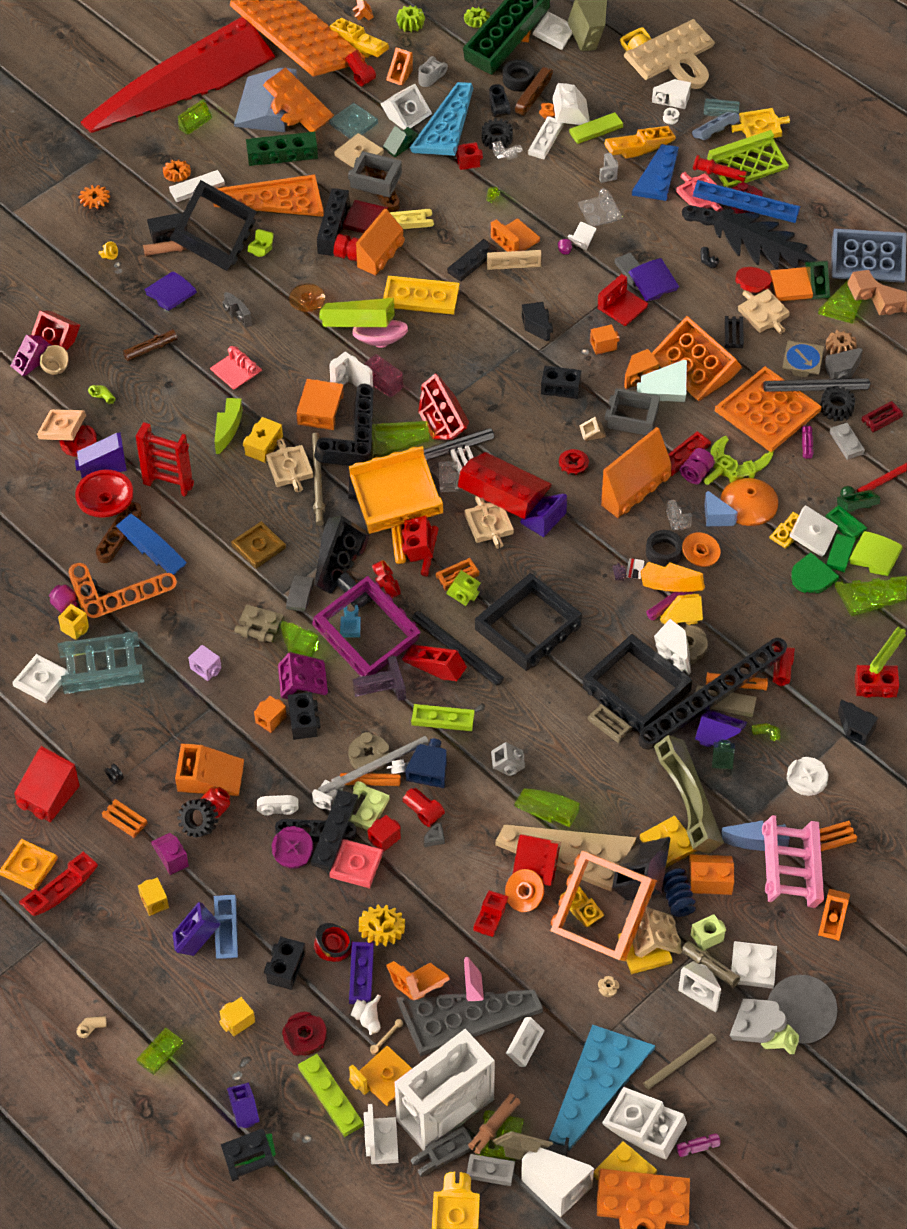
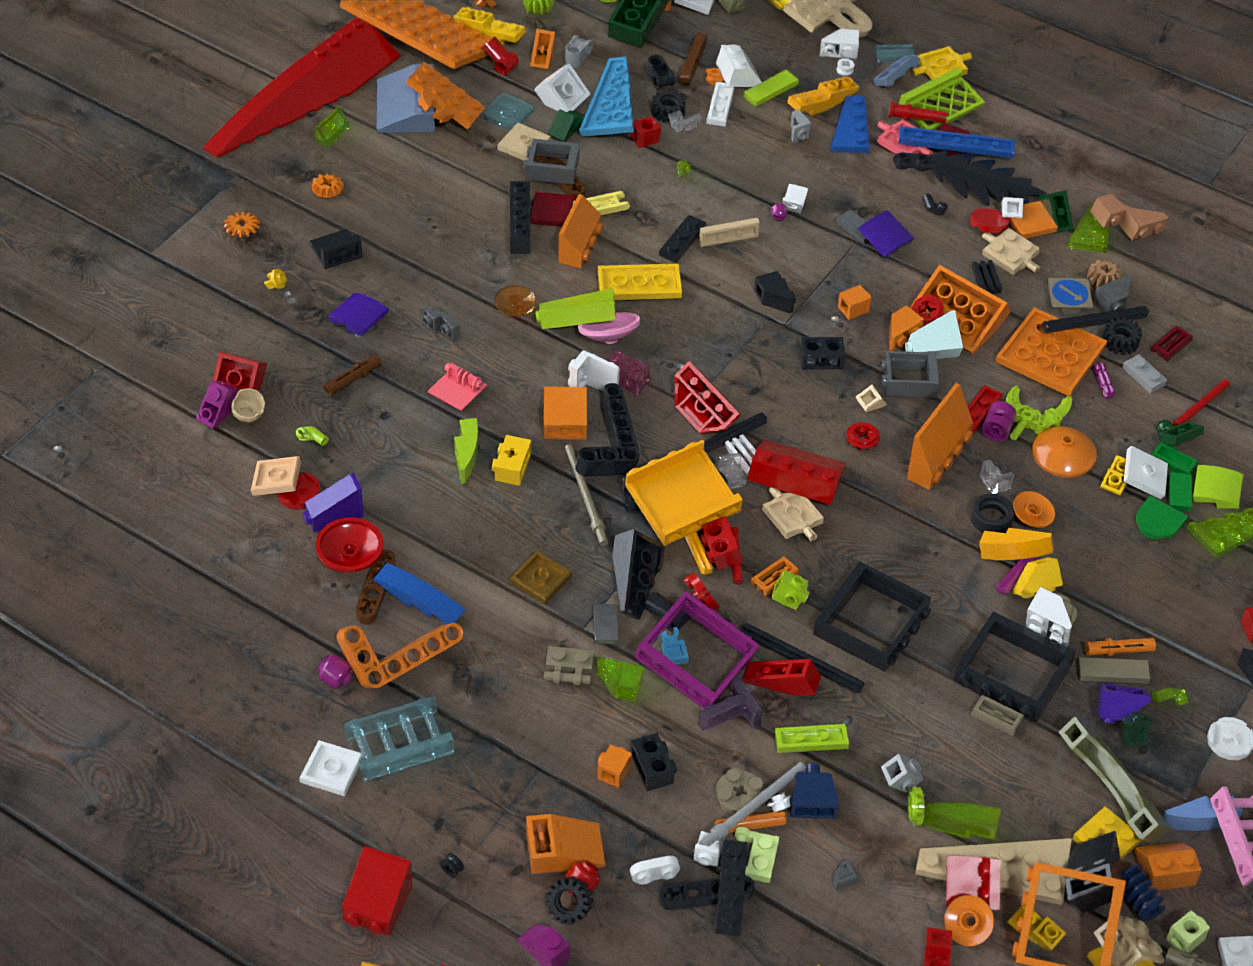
camera: 15 degrees left, 5 degrees down
(73, 622) = (355, 696): yellow brick -> none
(112, 809) = (480, 912): orange tile -> none
(148, 461) = (394, 500): red fence -> none
(162, 247) = (346, 265): nougat pin -> none
(185, 189) = (354, 199): white tile -> none
(203, 248) = (381, 260): black window -> none
(205, 663) = (521, 719): lavender brick -> none
(262, 243) = (447, 249): lime bracket -> none
(282, 148) = (439, 148): dark green brick -> none
(287, 195) = (454, 197): orange wing -> none
(289, 465) = (550, 484): tan plate -> none
(292, 847) = (687, 916): magenta tile -> none
(301, 673) = (633, 714): magenta bracket -> none
(345, 247) = (545, 242): red wheel -> none
(356, 863) = (766, 922): coral plate -> none
(384, 833) = (787, 881): red brick -> none
(398, 436) = (662, 435): clear neon green wing -> none
(426, 810) = (828, 847): red piece -> none
(510, 788) = (916, 806): none -> lime gear
(513, 236) = (720, 207): orange bracket -> none
(518, 66) = (672, 35): black tyre -> none
(546, 514) = (852, 495): dark purple slope -> none
(600, 209) = (804, 169): clear hinge -> none
(619, 302) = (858, 263): red bracket -> none
(619, 571) = (953, 546): clear purple plate -> none
(634, 568) = (966, 541): sticker -> none
(662, 350) = (934, 303): none -> red gear
(718, 512) = (1037, 467): medium blue slope -> none
(719, 686) = (1096, 669): black beam -> none
(776, 270) = (1012, 207): none -> white slope
(782, 668) = (1162, 615): red piece -> none
(869, 250) = (1100, 175): sand blue slope -> none

